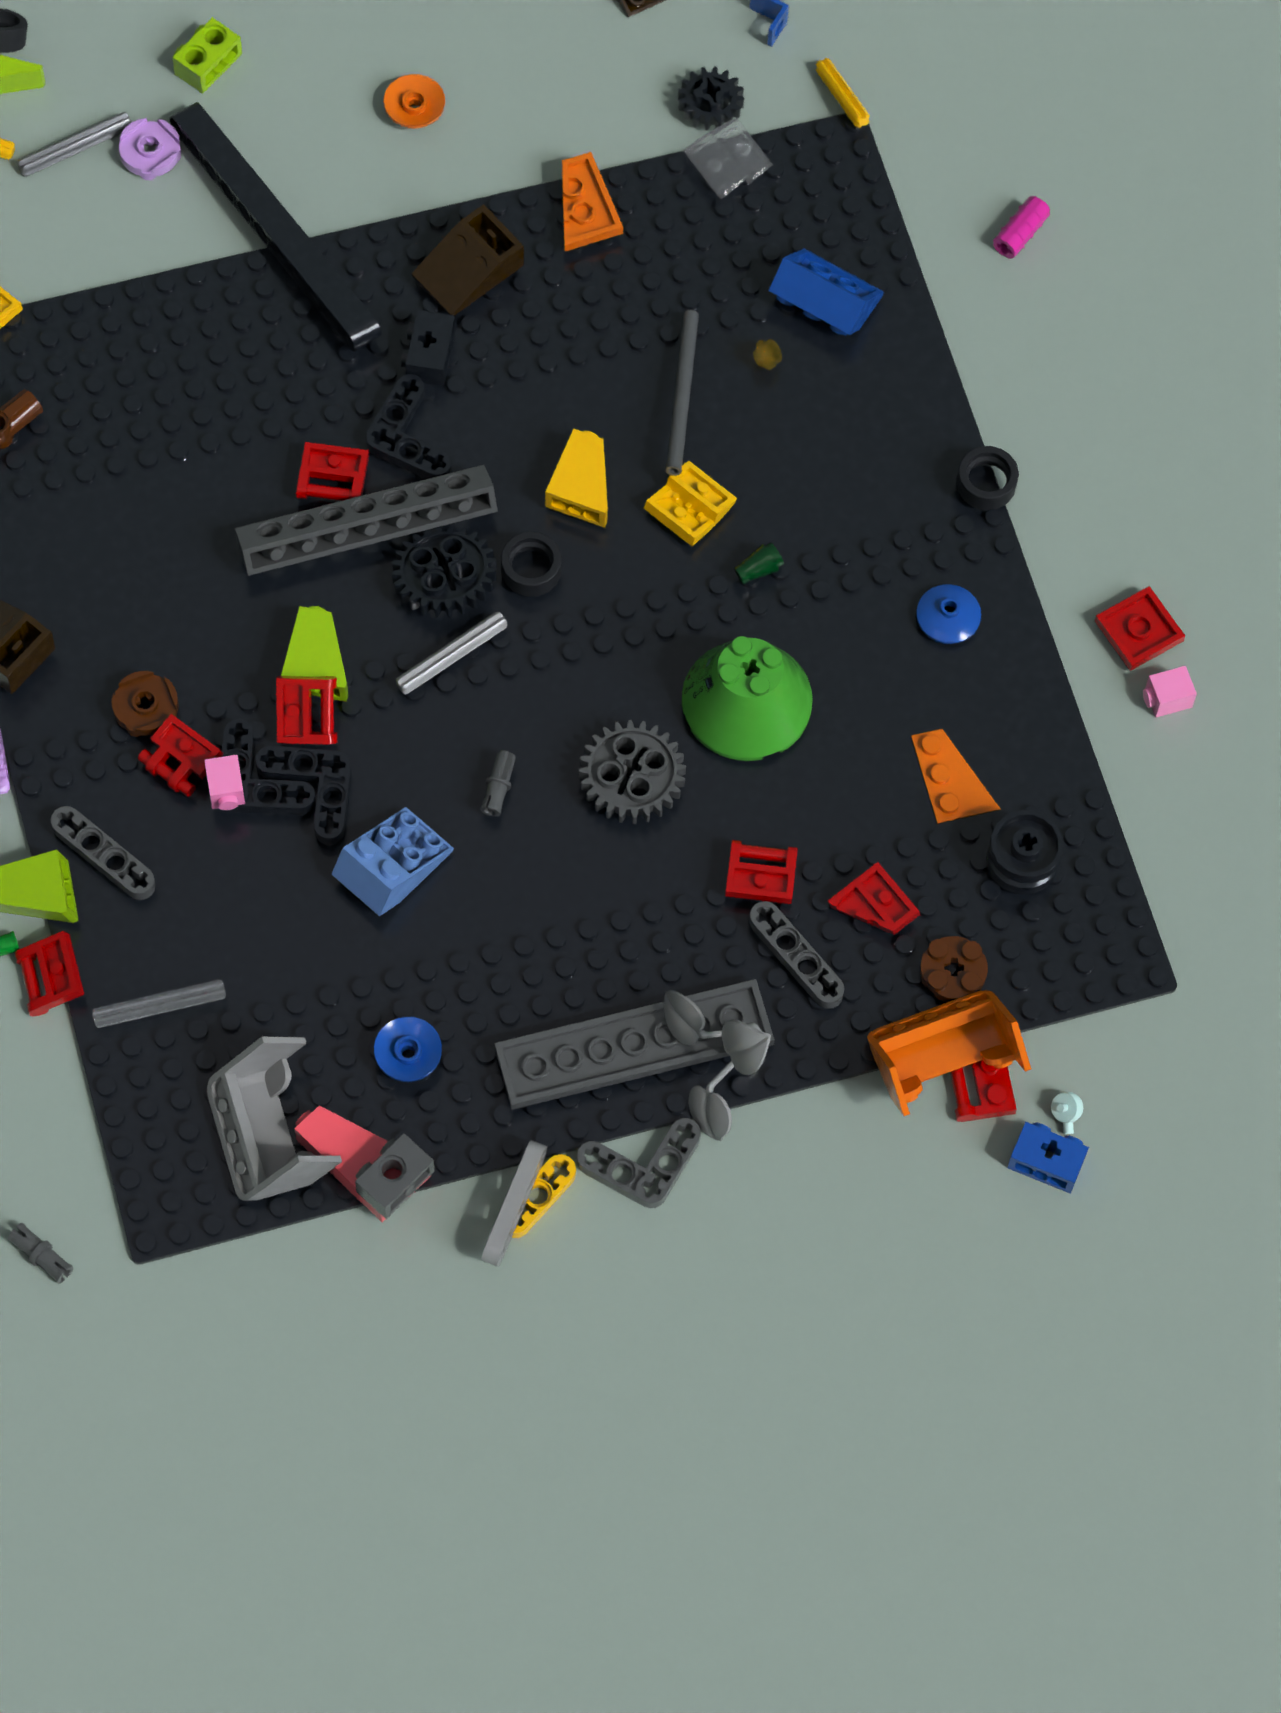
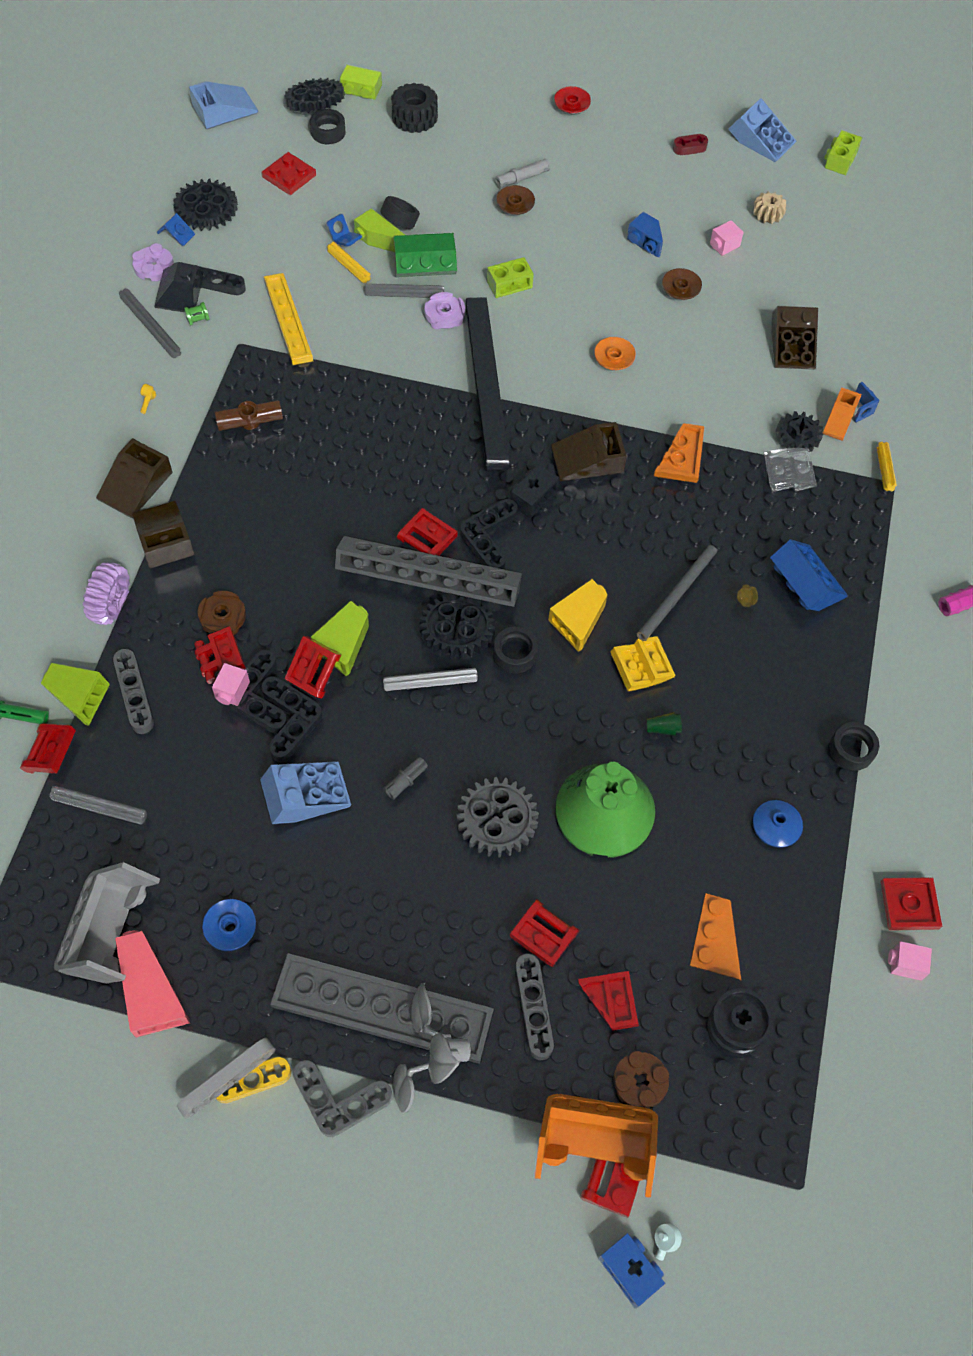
camera: 30 degrees right, 5 degrees down
(75, 78) = (425, 255): none -> green slope
(388, 1194) = (167, 1014): dark grey brick -> none
(751, 47) = (842, 414): none -> orange slope

